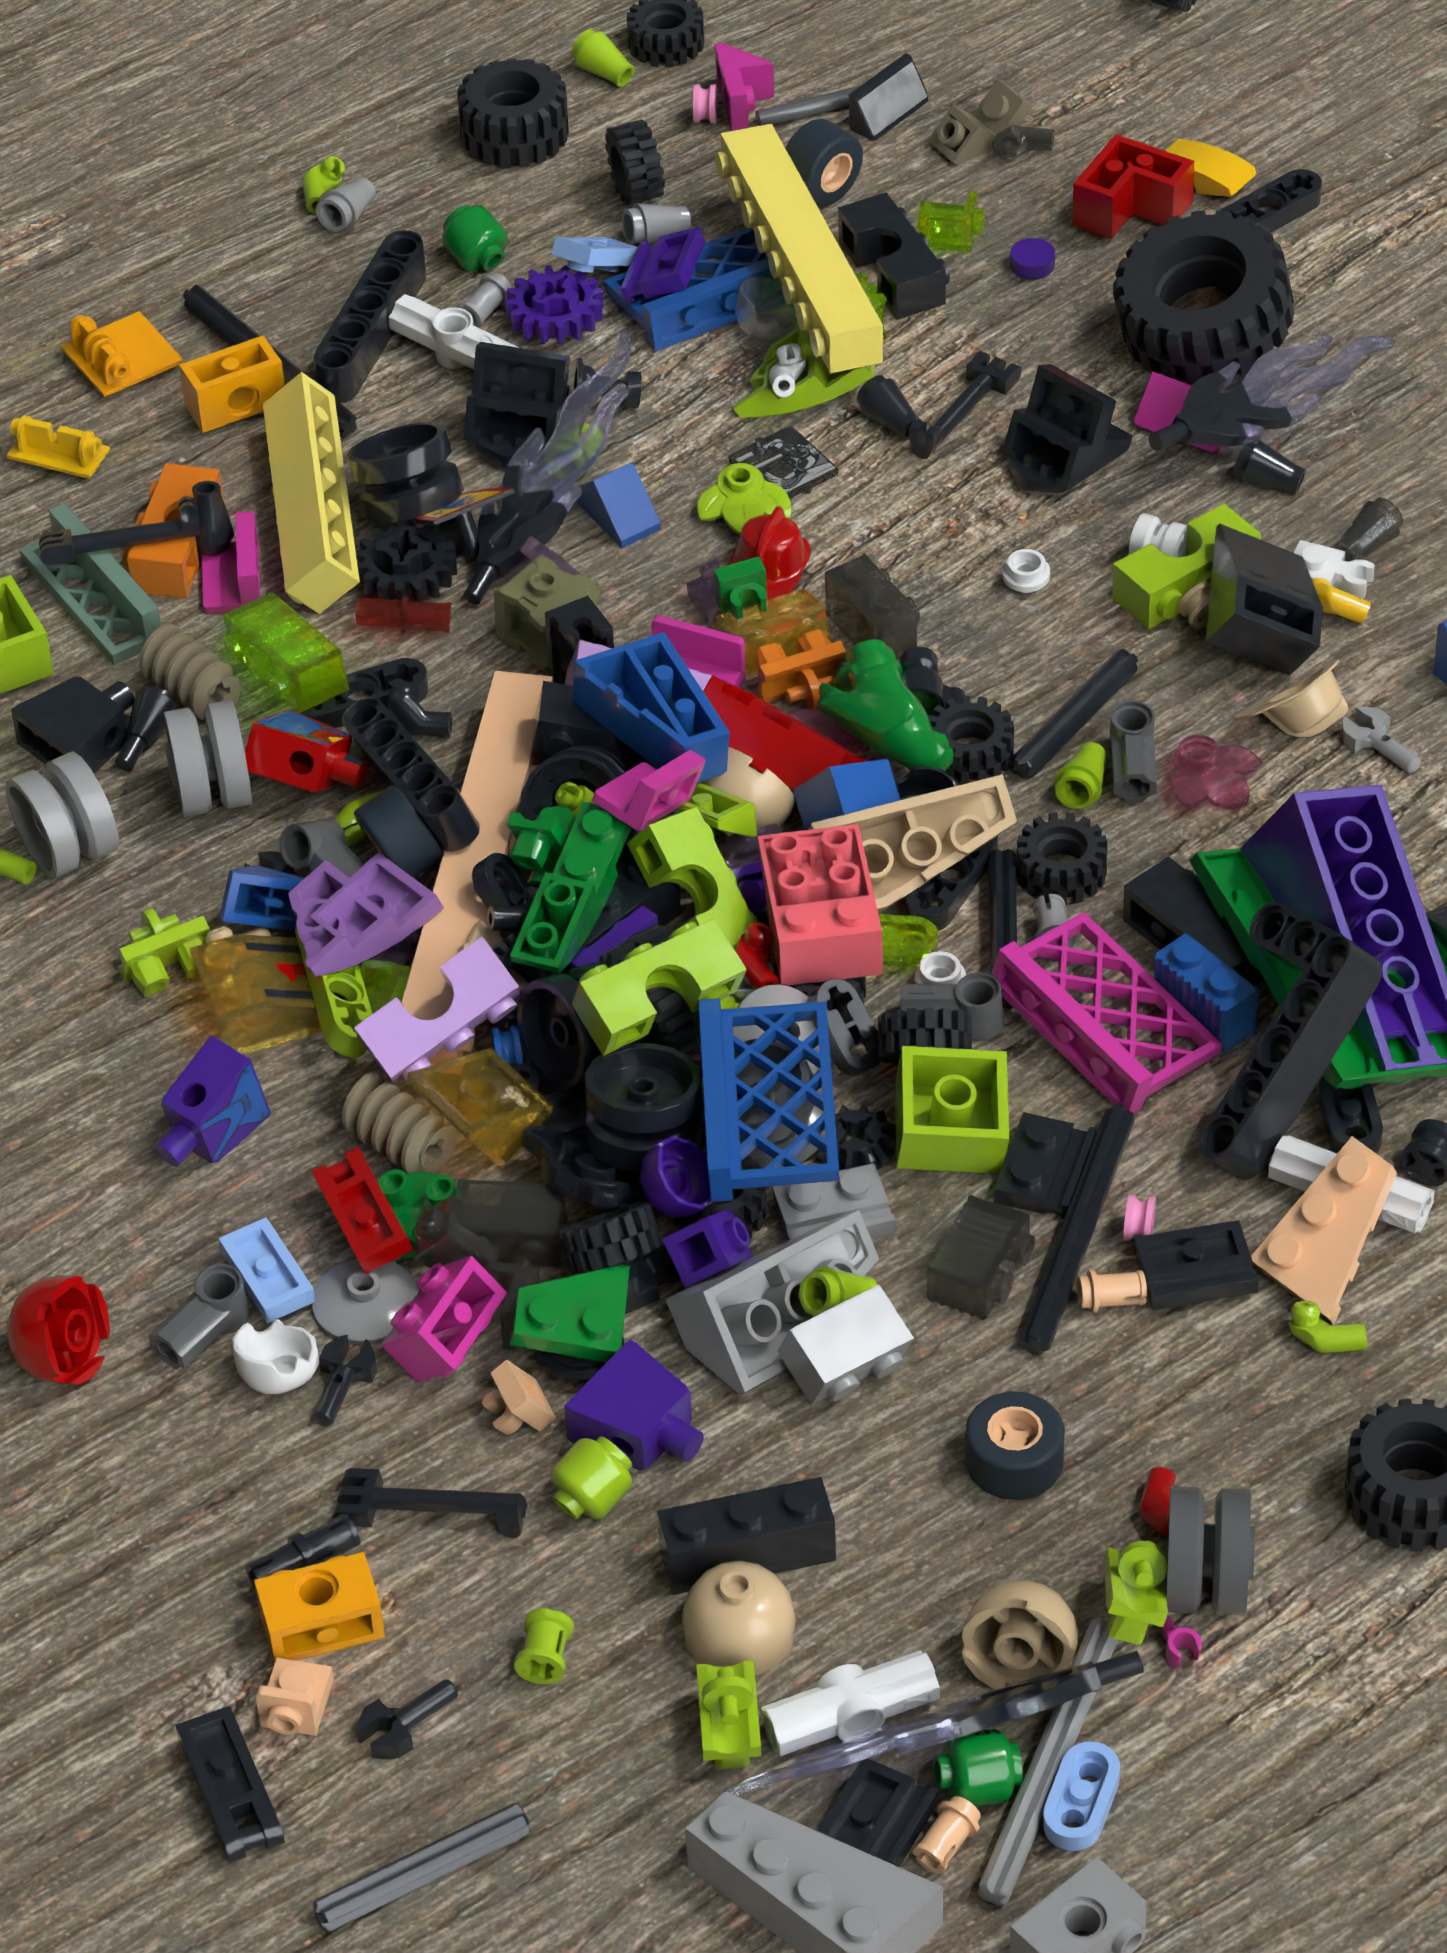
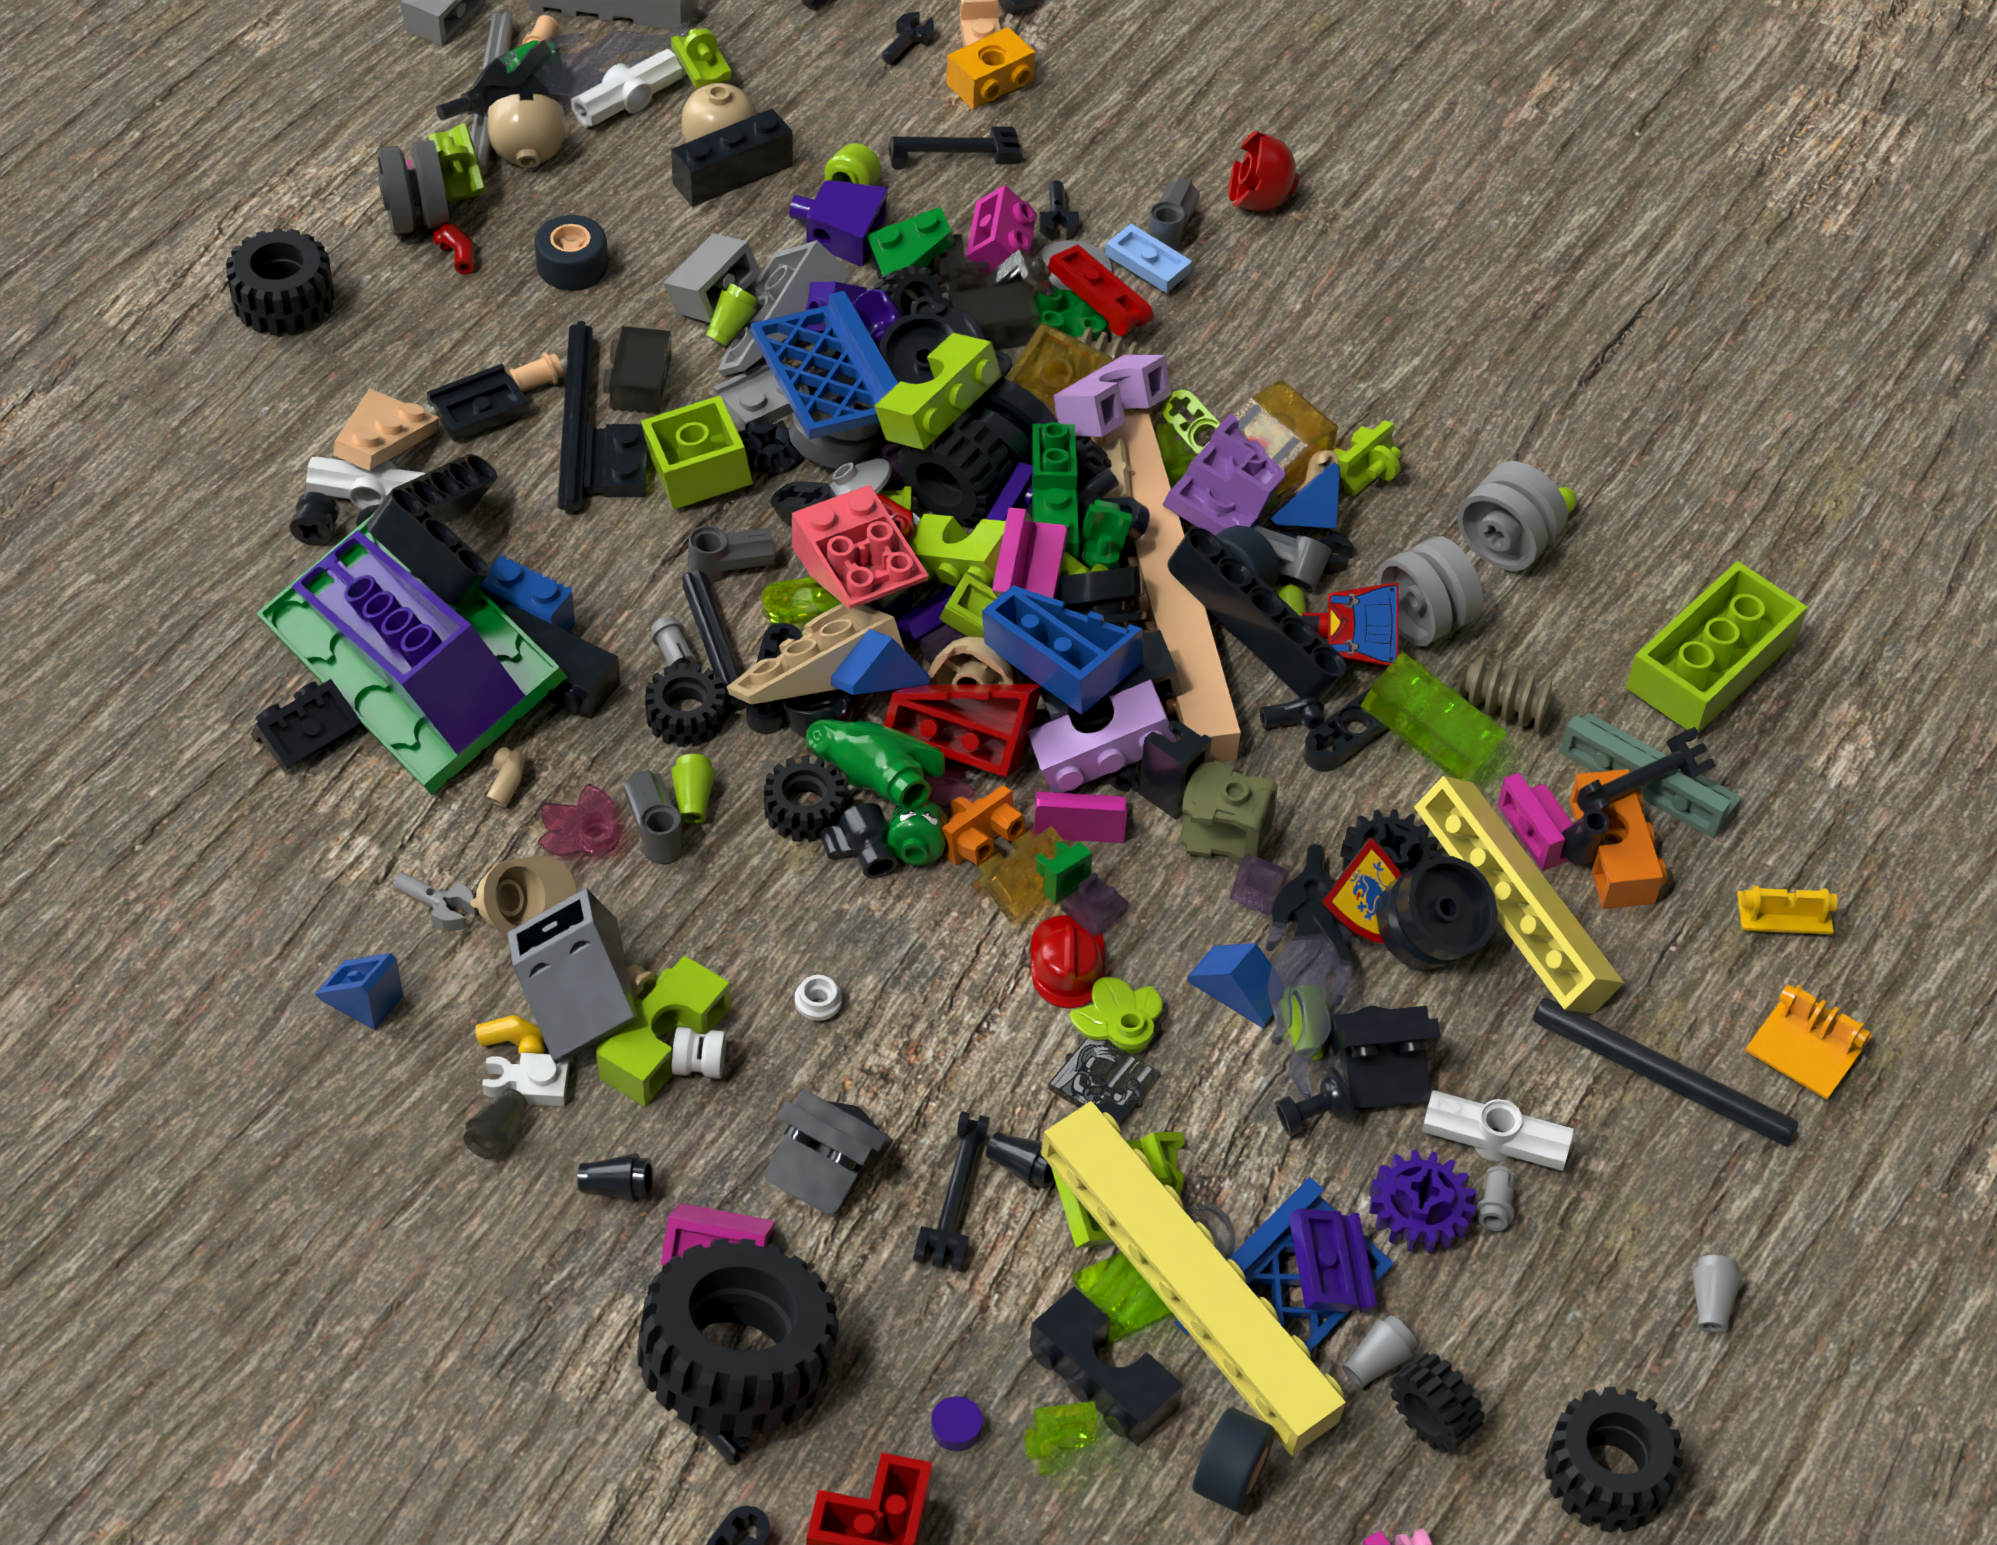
camera: 155 degrees right, 5 degrees up
(74, 719) = (1569, 626): black torso -> none
(144, 724) = (1514, 648): black cone -> none
(212, 1105) = (1252, 326): dark purple torso -> none
(231, 383) = (1667, 996): light orange brick -> none
(275, 1358) = (1106, 195): white hair -> none
(307, 1549) = (1022, 101): black pin -> none
(322, 179) = (1767, 1322): lime arm -> none
(363, 322) = (1593, 1156): black beam -> none
(403, 614) = (1348, 809): clear red axle -> none
(474, 238) = (1552, 1268): green head -> none
(522, 1400) = (922, 200): light nougat tile -> none
(544, 1646) = (835, 73): lime bush -> none
(594, 252) = (1412, 1267): light blue plate -> none
(786, 372) = (1140, 1137): white arm -> none
(870, 606) = (942, 898): clear smoke brick -> none
(880, 1812) = (593, 21): black plate -> none
(922, 1029) = (720, 477): black tyre -> none
(939, 969) = (749, 583): white plate -> none
(1074, 713) = (721, 858): black axle -> none
(1077, 1028) = (627, 541): dark pink fence -> none
(1080, 1800) = (460, 68): light blue plate -> none
(1139, 1217) = (529, 423): bright pink bush -> none
(1263, 395) = (669, 1173): piece -> none
(1322, 1336) = (372, 378): lime arm -> none

